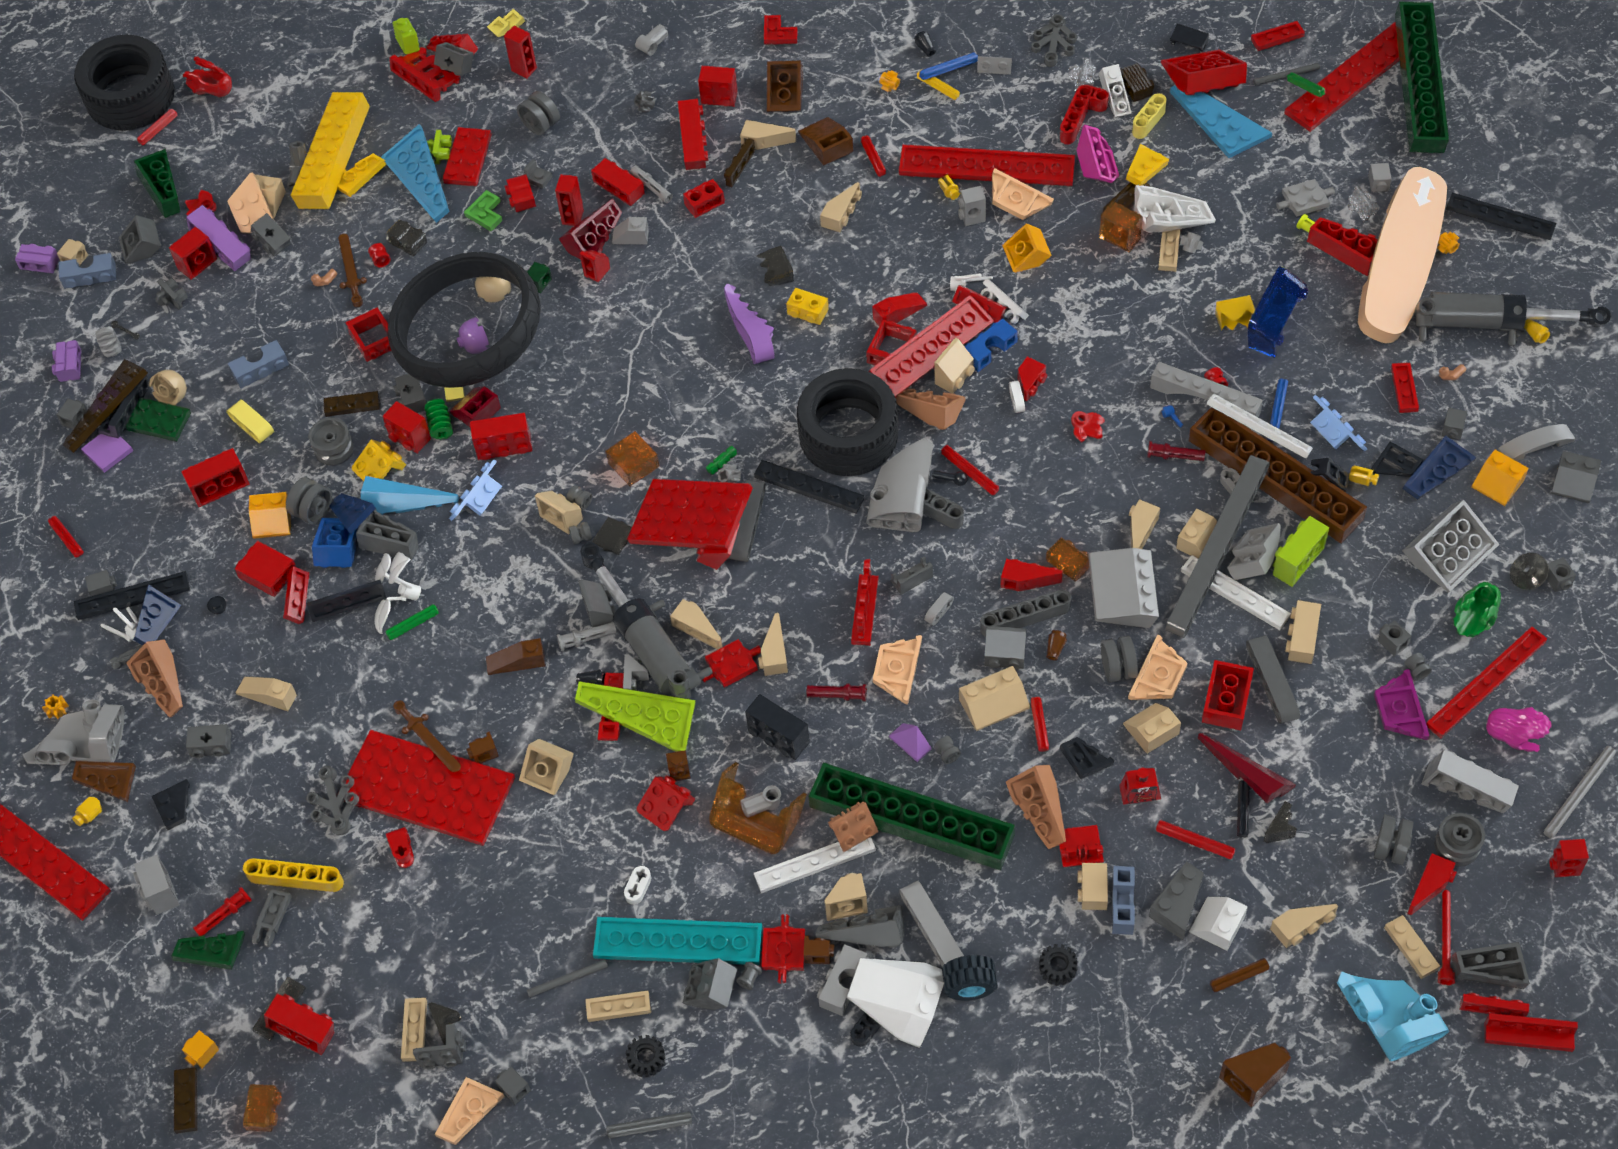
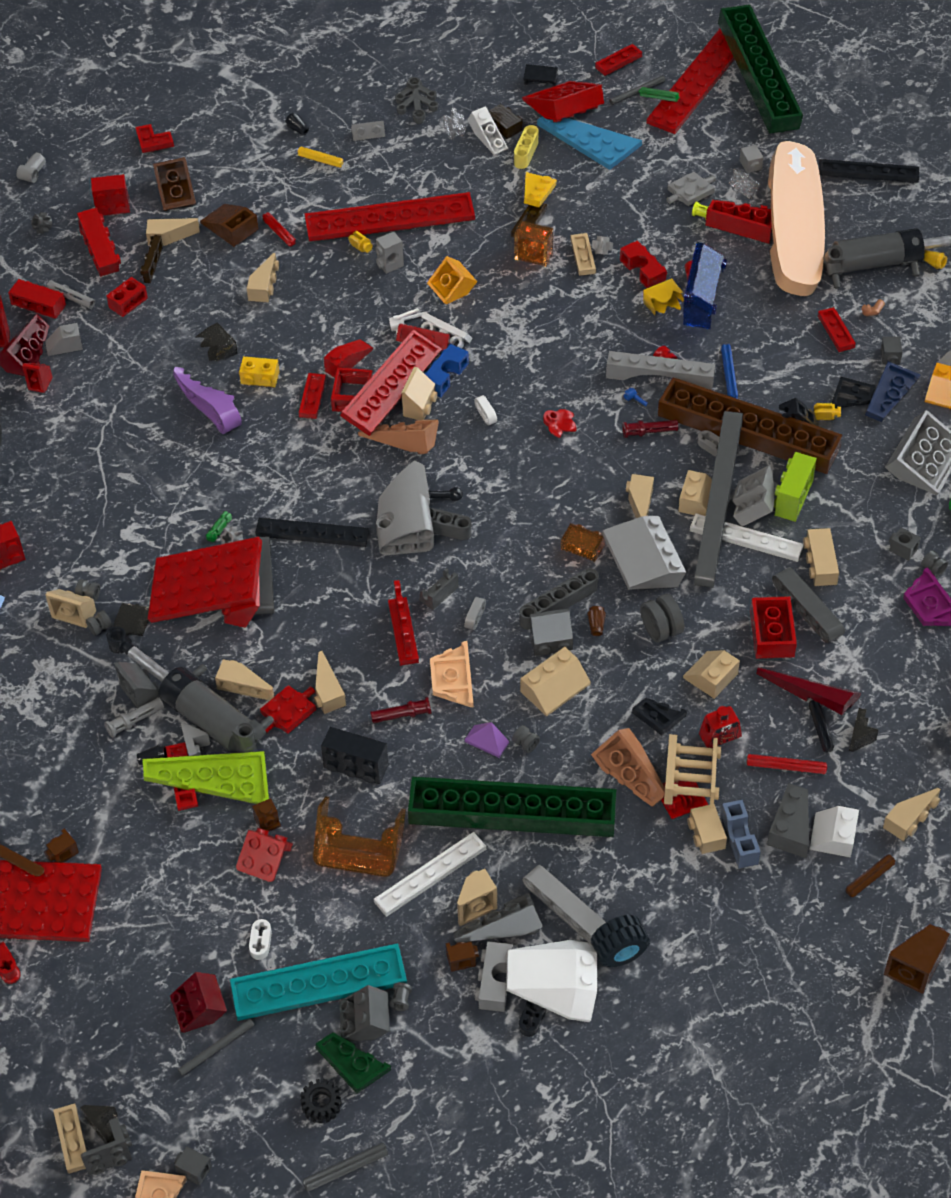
camera: 20 degrees left, 5 degrees down
(517, 657) = (69, 753): reddish brown slope -> none
(545, 766) = (131, 849): tan slope -> none
(562, 931) = (198, 1002): none -> dark red slope
(618, 1006) = (277, 1060): tan plate -> none
(632, 458) = (130, 543): clear orange brick -> none
(684, 1027) = (350, 1063): none -> dark green wing
(760, 802) = (360, 830): light grey piece -> none
(783, 949) = (426, 962): red plate -> none
(847, 390) = (334, 434): black tyre -> none
(851, 343) = (312, 395): none -> red plate
(853, 826) = (460, 828): nougat hinge -> none
(889, 81) = (274, 161): light orange gear -> none
(948, 66) = (325, 138): blue axle -> none
(970, 470) = (463, 484): red axle -> none
(1016, 196) = (426, 237): light nougat wing -> none
(1026, 576) = (548, 565): red slope -> none
(1030, 376) = (493, 388): red slope -> none
(1039, 724) = (605, 695): red axle -> none
(1058, 976) = (701, 899): black tyre -> none
(1081, 811) = (674, 776): none -> tan fence
(1085, 99) = (463, 143): red beam -> none
(1096, 156) = (489, 189): dark pink wedge -> none
(1159, 673) = (702, 624): light nougat wing -> none
(1169, 211) = (573, 222): white wedge -> none
(1224, 261) = (635, 256): none -> red arch
(1259, 425) = (720, 386): white tile -> none
(1332, 428) = (784, 376): light blue bracket -> none
(1448, 242) = (831, 201): light orange gear -> none

